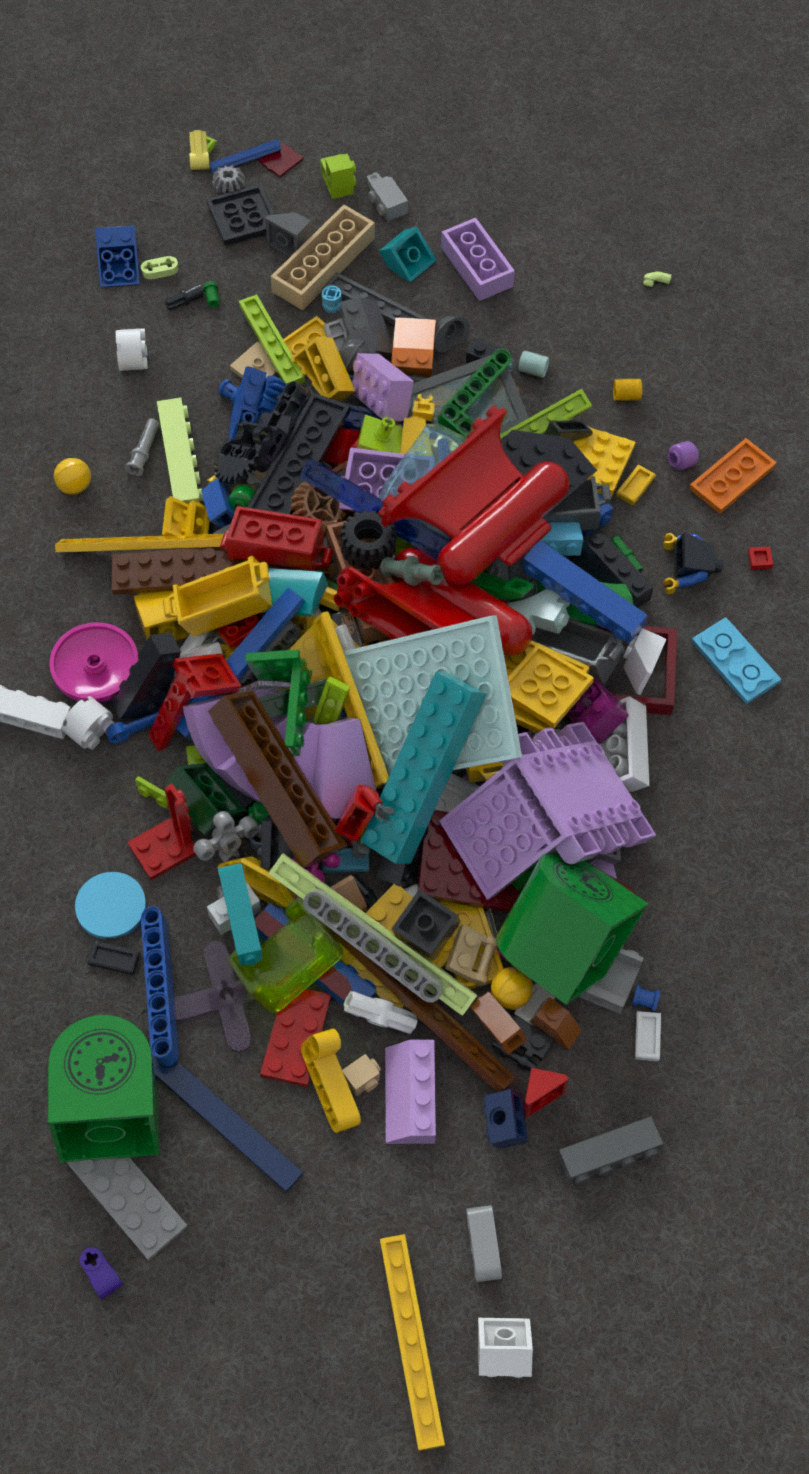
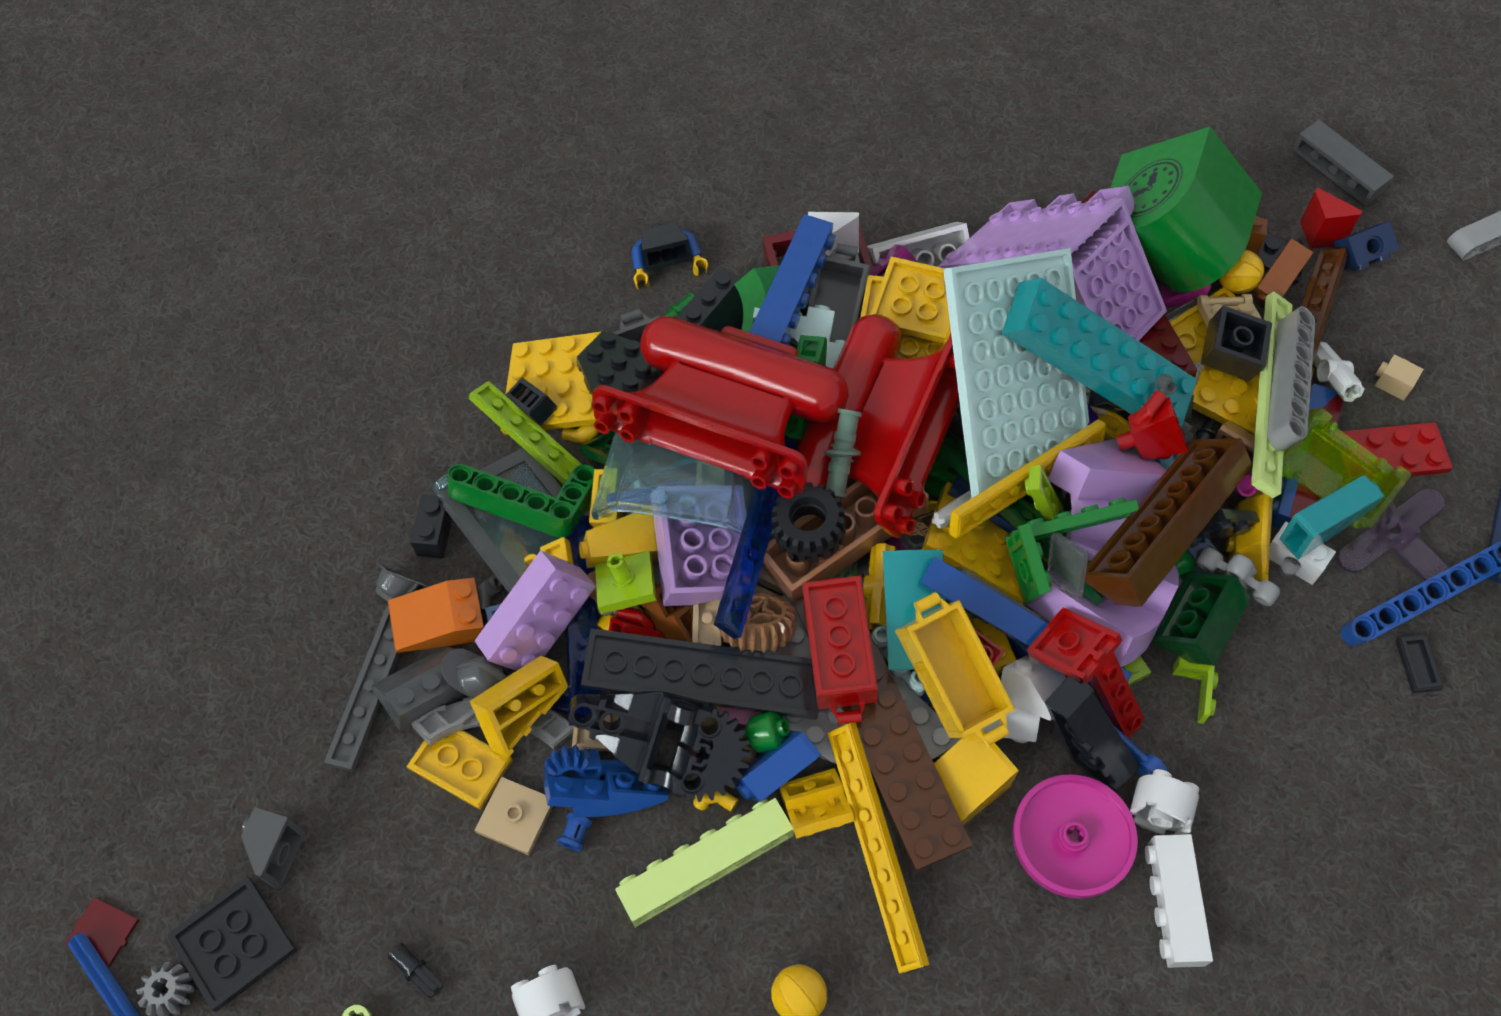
camera: 105 degrees left, 0 degrees up
(110, 905) = (1363, 691): medium azure tile -> none
(140, 453) = (722, 918): light grey pin -> none
(169, 841) = (1258, 656): red bracket -> none
(210, 289) = (400, 930): green pin -> none
(271, 340) = (473, 805): lime plate -> none
(322, 256) = (302, 786): tan brick -> none
(329, 1079) = (1416, 403): yellow beam -> none
(331, 299) = (378, 758): medium azure wheel -> none
(339, 175) = (132, 823): lime brick -> none
(387, 196) = (160, 744): light grey hinge -> none
(408, 254) = (268, 681): teal slope -> none
(410, 1092) = (1387, 328): lavender slope -> none
(477, 259) = (264, 585): lavender brick -> none
(533, 364) = (425, 473): light aqua piece -> none
(627, 389) = (439, 367): yellow piece -> none
(635, 485) = (563, 326): yellow tile -> none
(656, 276) = (248, 386): yellowish green arm -> none
(683, 455) = (520, 291): medium lavender head -> none
(732, 475) = (532, 243): orange plate -> none
(736, 660) = (769, 192): medium azure piece -> none
(760, 558) = (635, 196): red plate -> none

